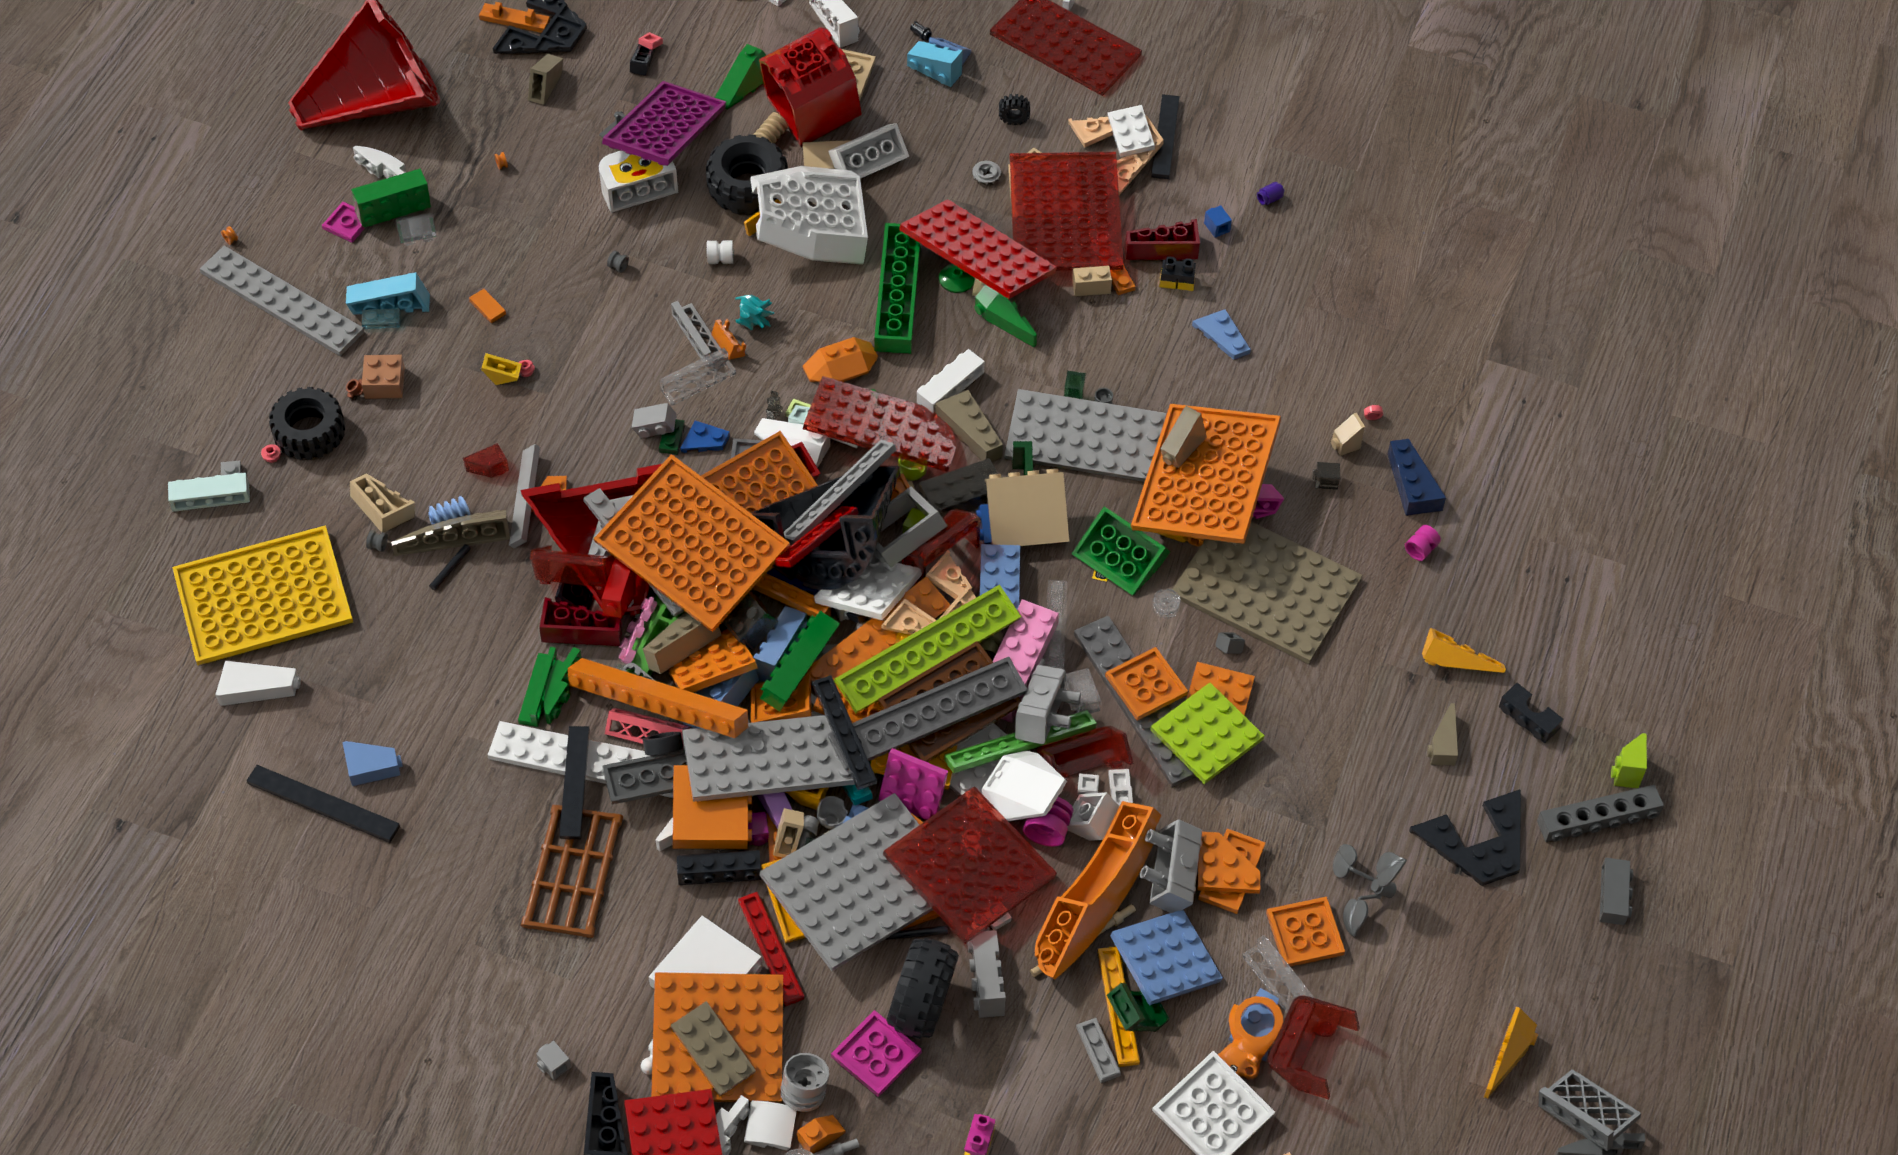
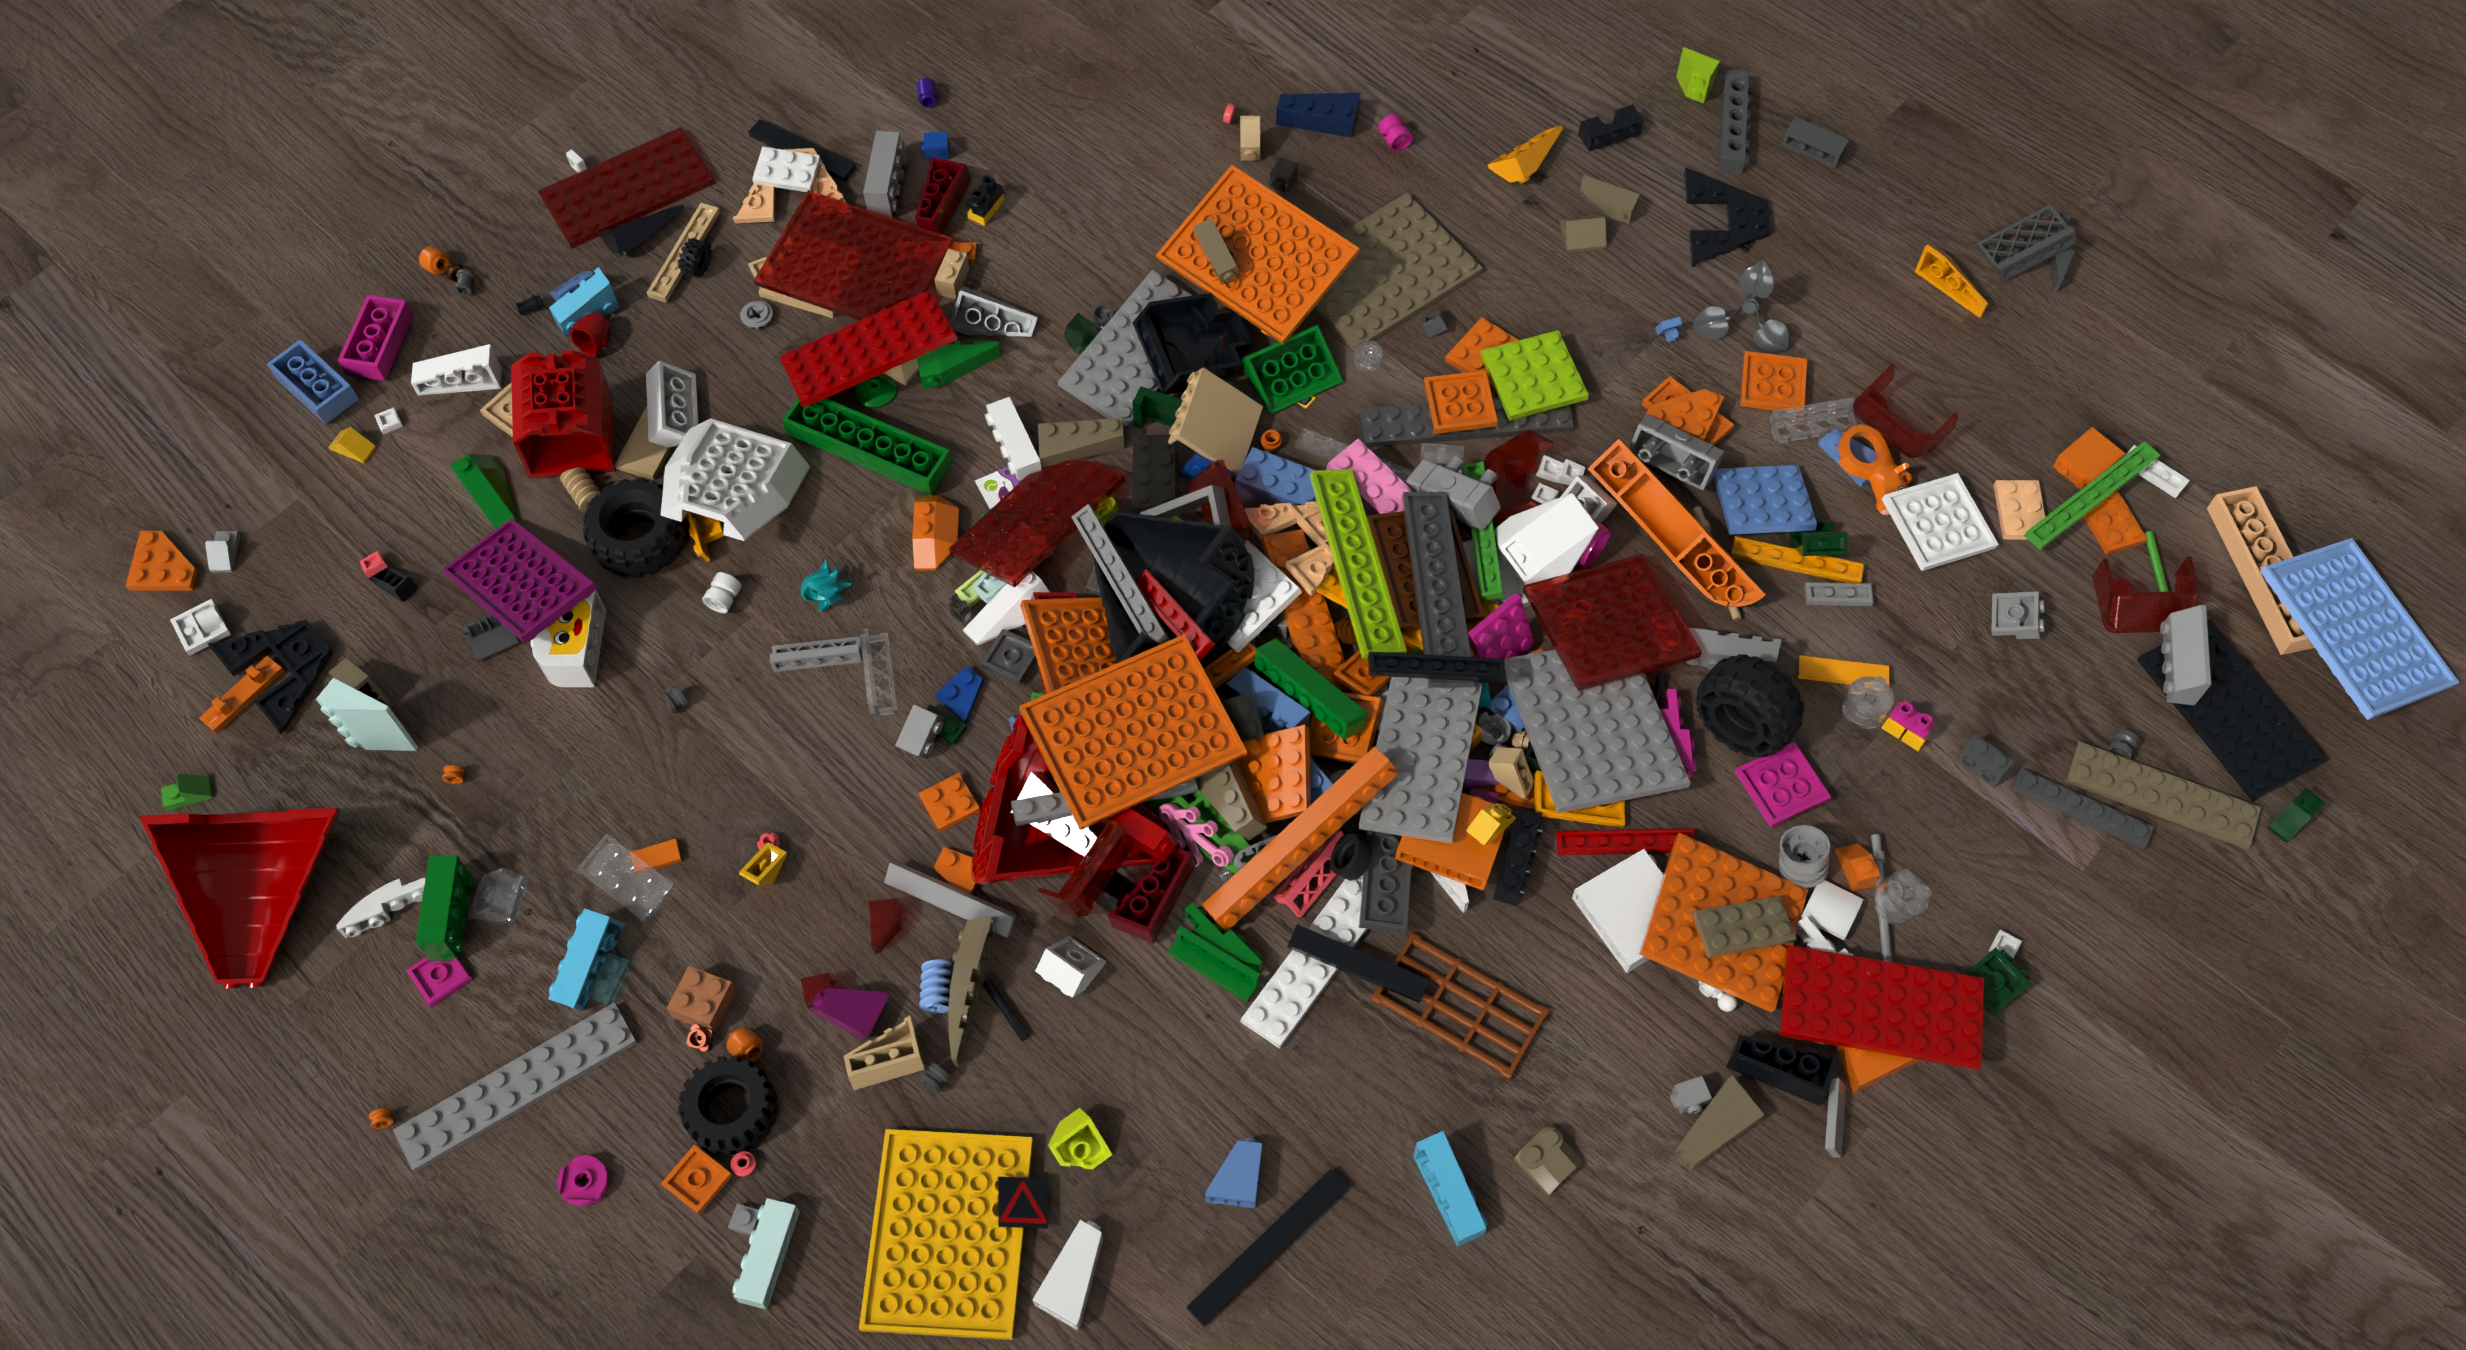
camera: 65 degrees left, 5 degrees up
(225, 375) = (574, 1171): none -> dark pink plate
(248, 430) = (696, 1179): none -> orange plate
(297, 629) = (1022, 1202): none -> black piece
(358, 416) = (744, 1044): none -> orange head
(358, 648) = (1078, 1142): none -> neon yellow slope
(406, 465) = (850, 1009): none -> magenta slope
(408, 906) = (1449, 1189): none -> medium azure wedge
(418, 443) = (814, 984): none -> clear red brick
(427, 23) = (186, 791): none -> bright green slope
(460, 294) = (626, 878): none -> clear plate
(462, 973) = (1548, 1159): none -> dark tan slope
(500, 592) = (1069, 966): none -> white slope
(511, 82) = (363, 719): none -> light aqua slope
(536, 1088) = (1723, 1121): none -> dark tan slope
(607, 465) = (949, 802): none -> orange plate
(722, 823) = (1490, 823): none -> yellow slope
(726, 340) = (846, 626): orange hinge -> none
(881, 956) = (1680, 736): none -> dark pink slope
(904, 389) = (996, 486): none -> sticker
(911, 76) = (590, 331): none -> red helmet
(982, 1090) = (1868, 702): none -> clear brick
(1016, 1075) = (1838, 670): none -> light orange tile
(1017, 61) = (630, 235): none -> black wedge
(1038, 101) = (670, 274): none -> tan plate
(1043, 557) = (1271, 435): none -> orange plate
(1064, 318) = (984, 315): none -> light grey wedge
(1104, 465) = (1190, 335): none -> black panel
(1162, 196) = (885, 173): none -> light grey brick
(1223, 332) = (1069, 193): medium blue wing -> none
(1320, 827) = (1669, 328): none -> medium blue tile
(1396, 727) = (1584, 232): none -> dark tan slope

